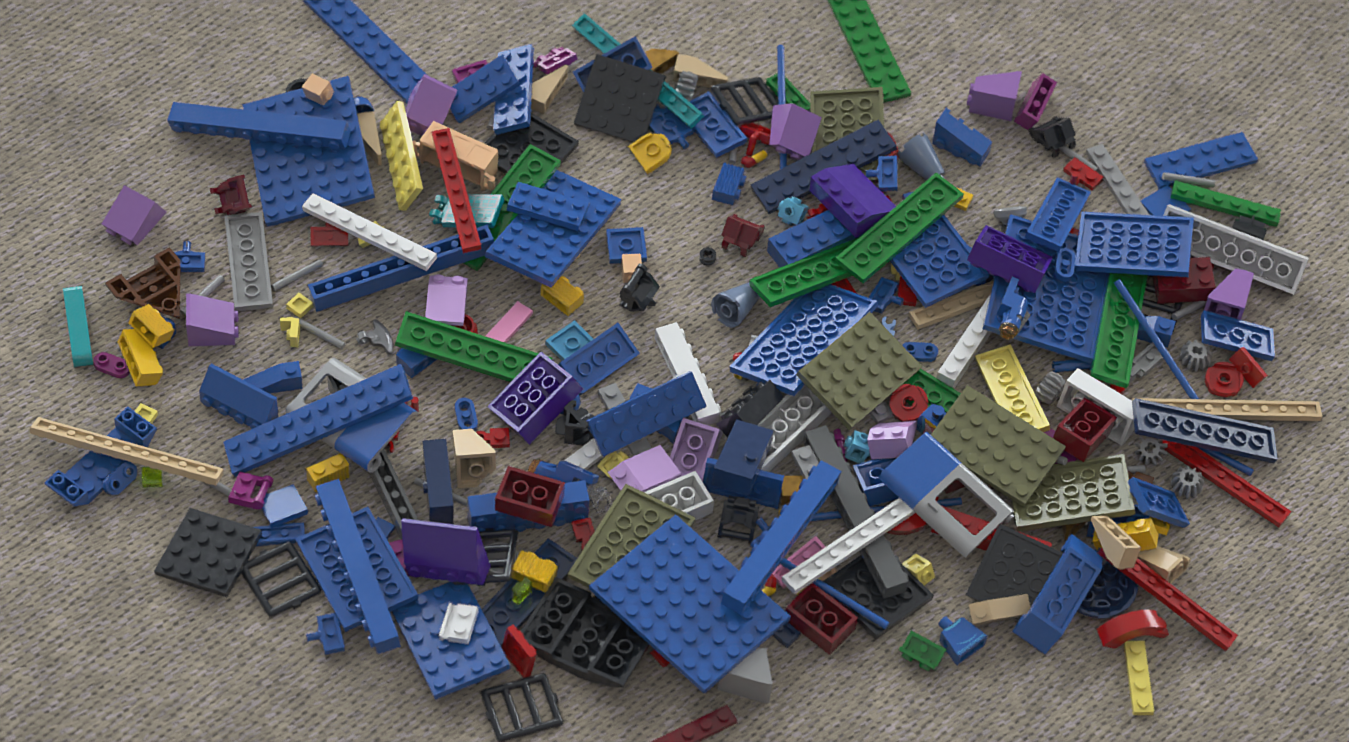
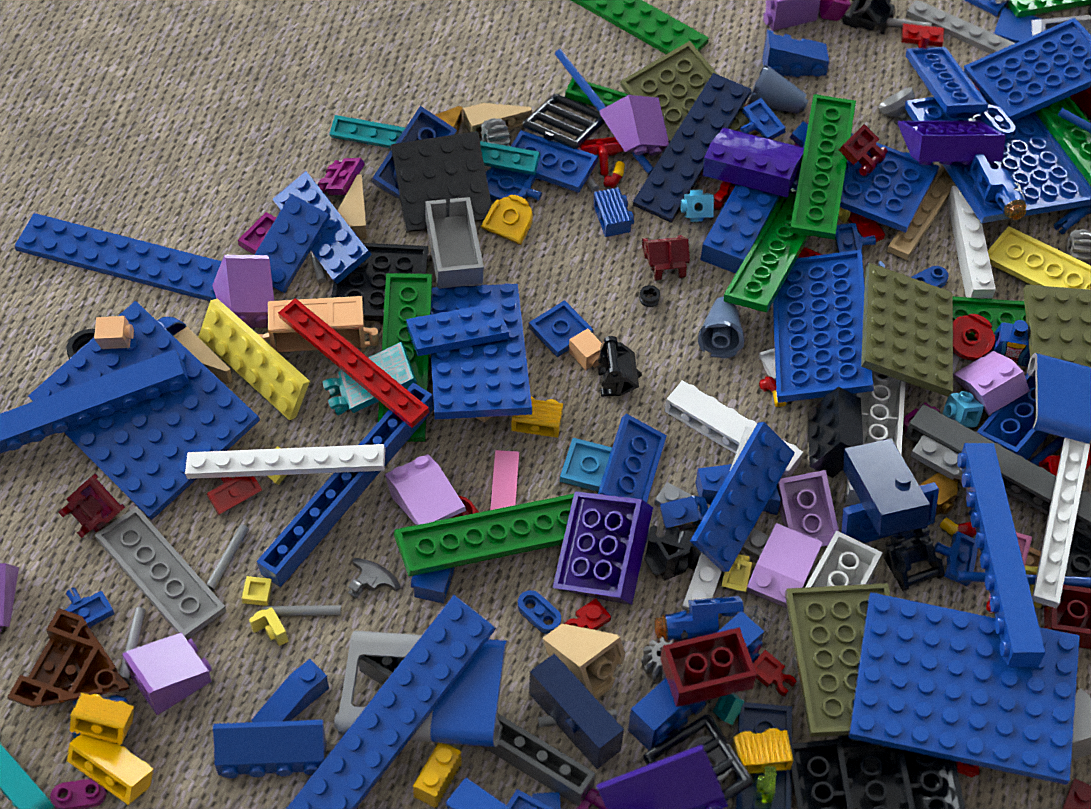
camera: 30 degrees left, 0 degrees up
(538, 536) = (728, 707): none -> teal plate
(593, 147) = (454, 243): none -> light grey piece
(599, 402) = (683, 512): none -> blue torso
(936, 225) = (858, 145): none -> dark red plate

